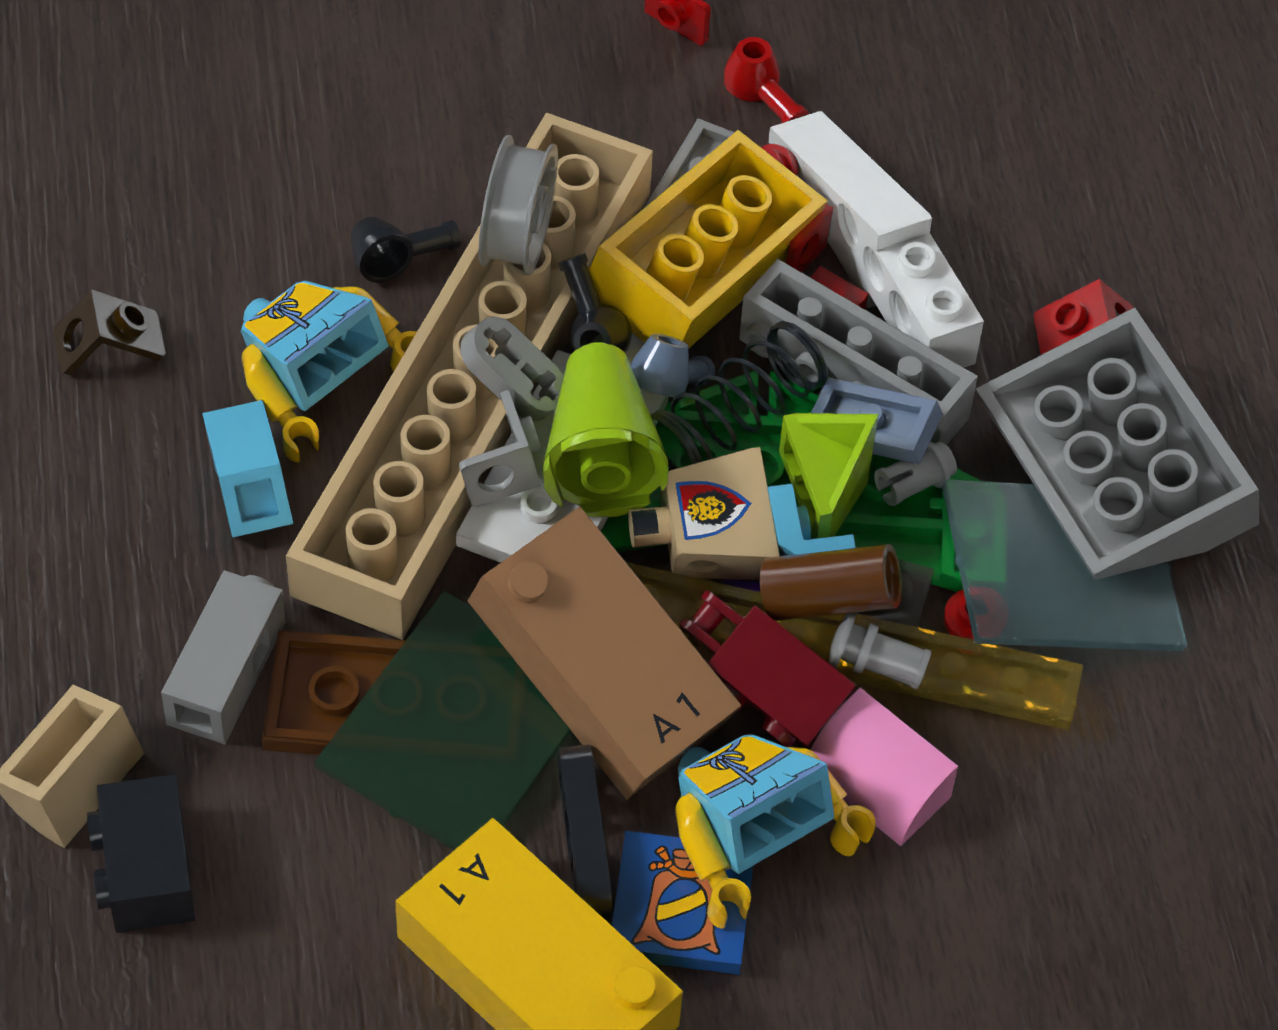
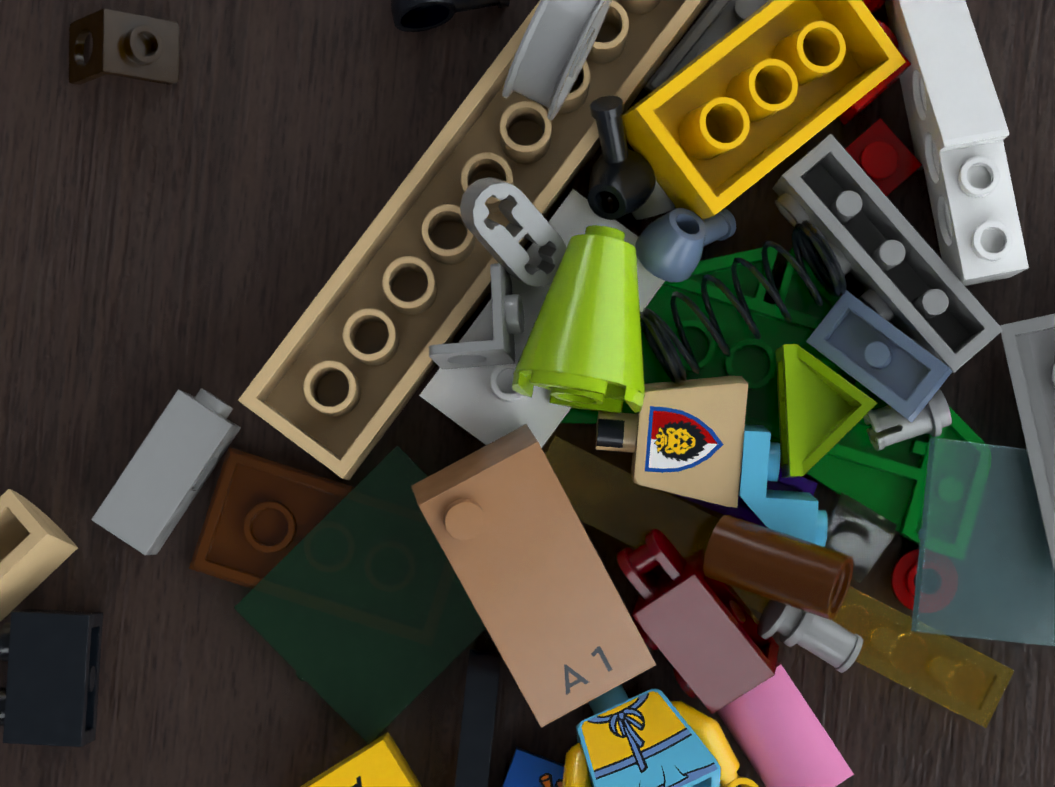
camera: 15 degrees right, 30 degrees up
(247, 468) = (229, 252): medium azure slope -> none
(309, 346) = (321, 119): torso -> none

